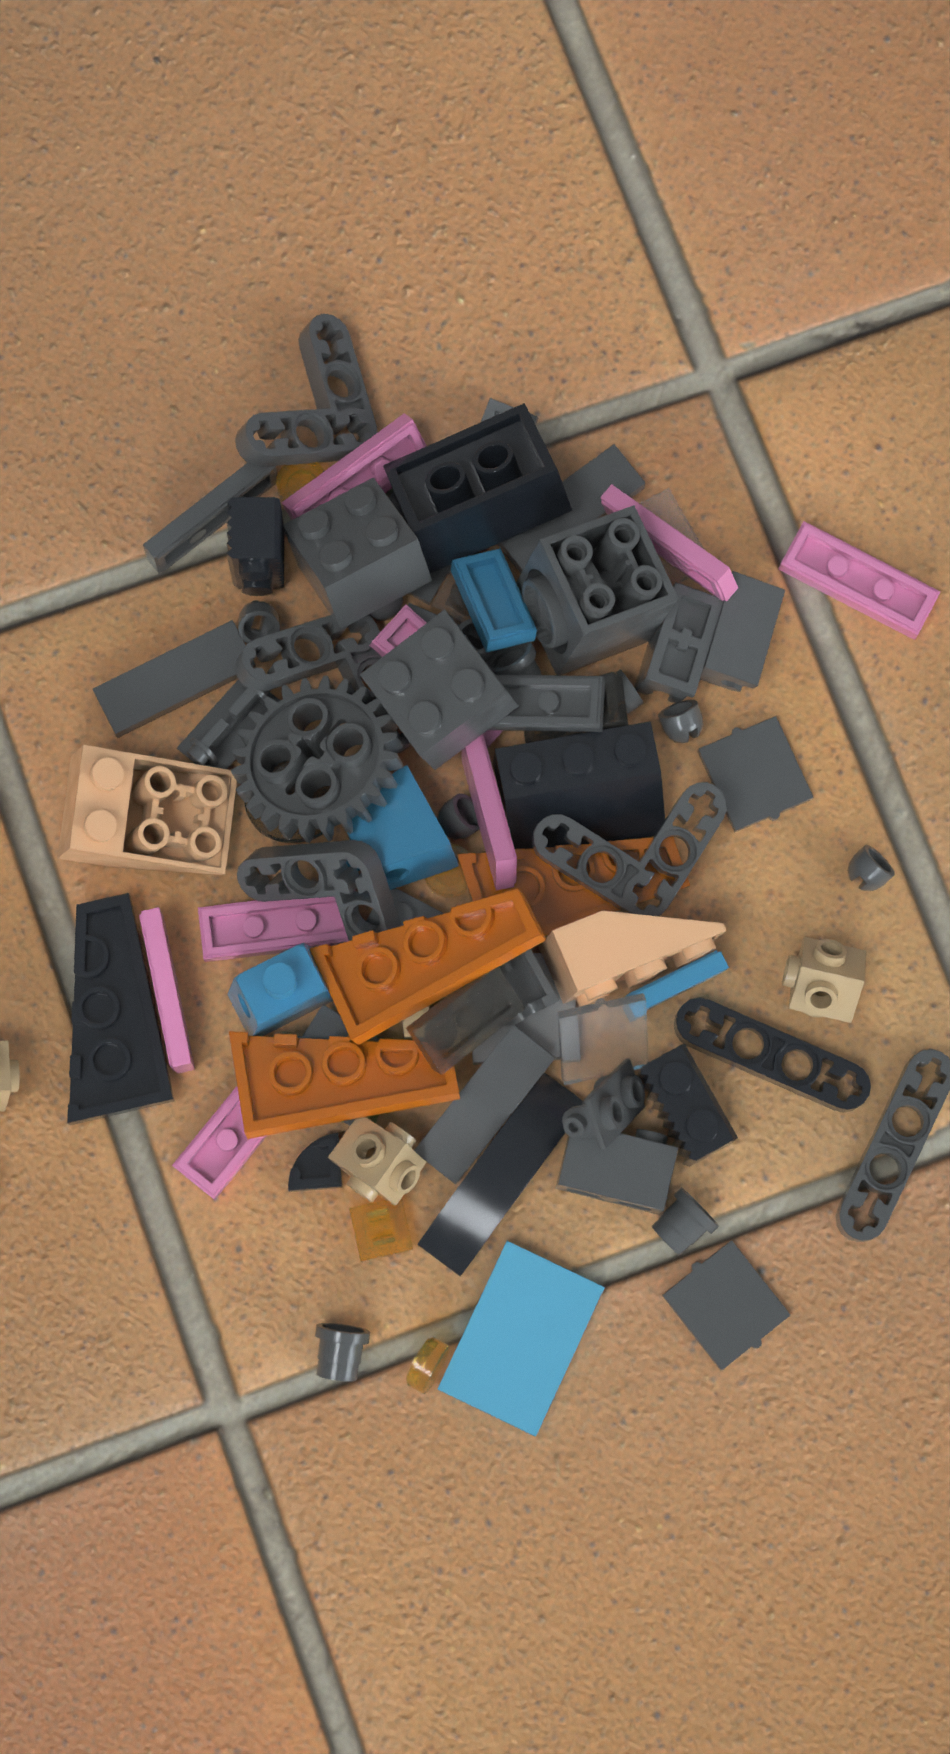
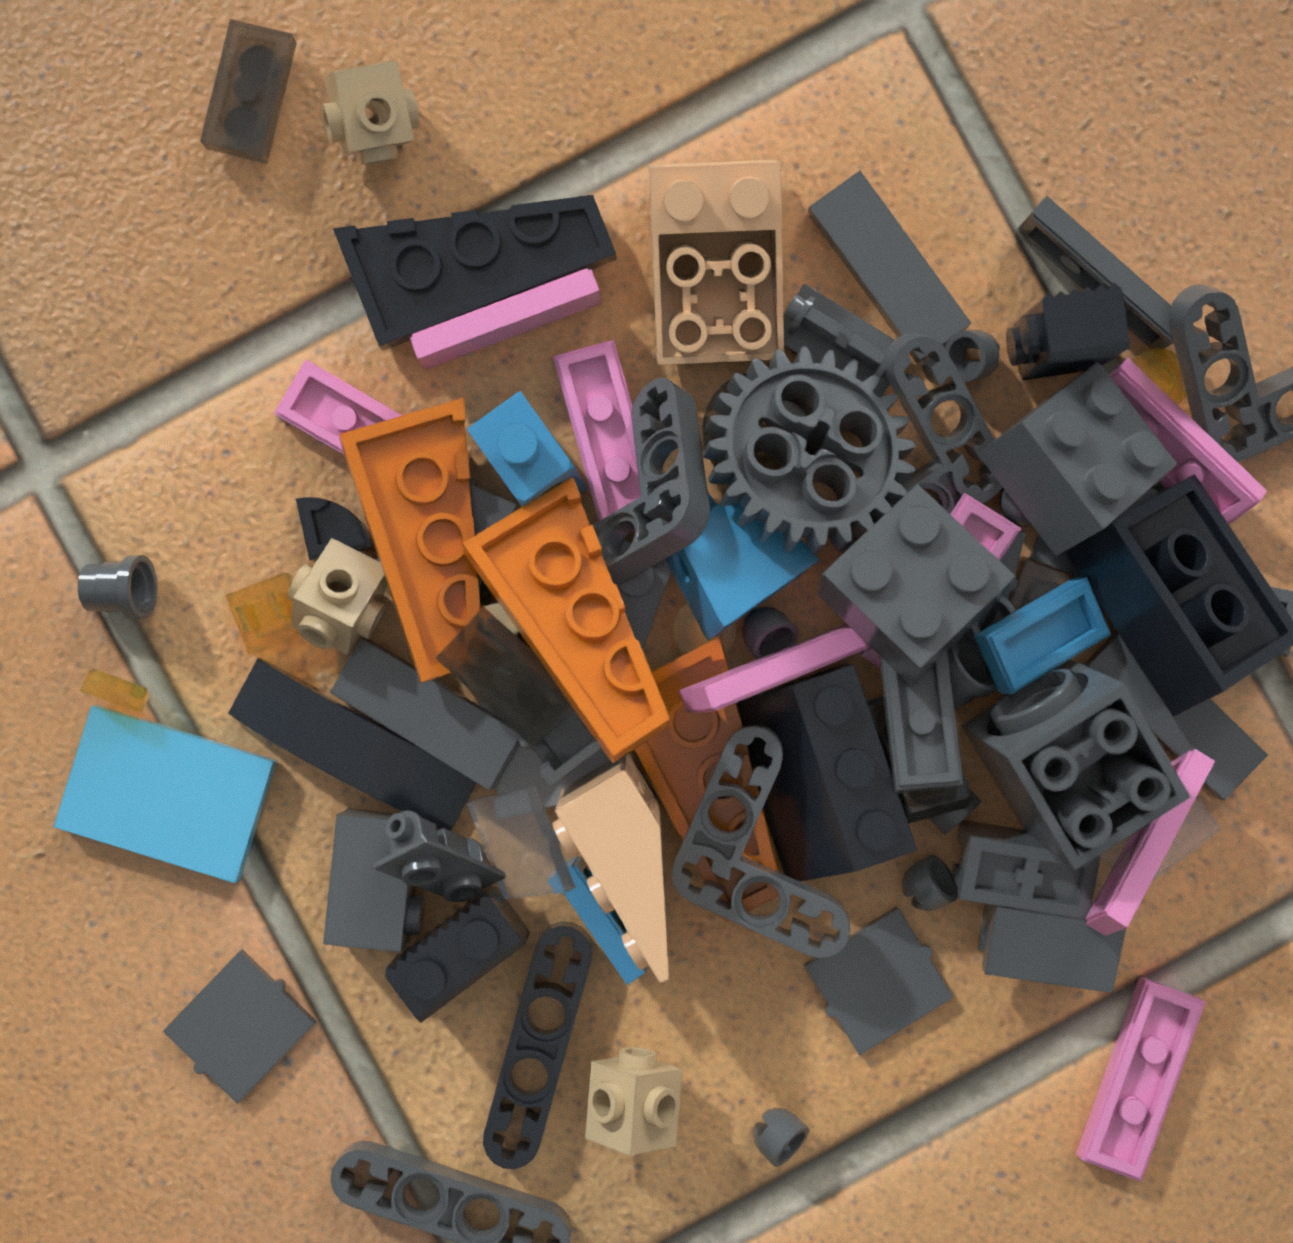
camera: 90 degrees right, 10 degrees up
(684, 1222) = (322, 968): dark grey piece -> none

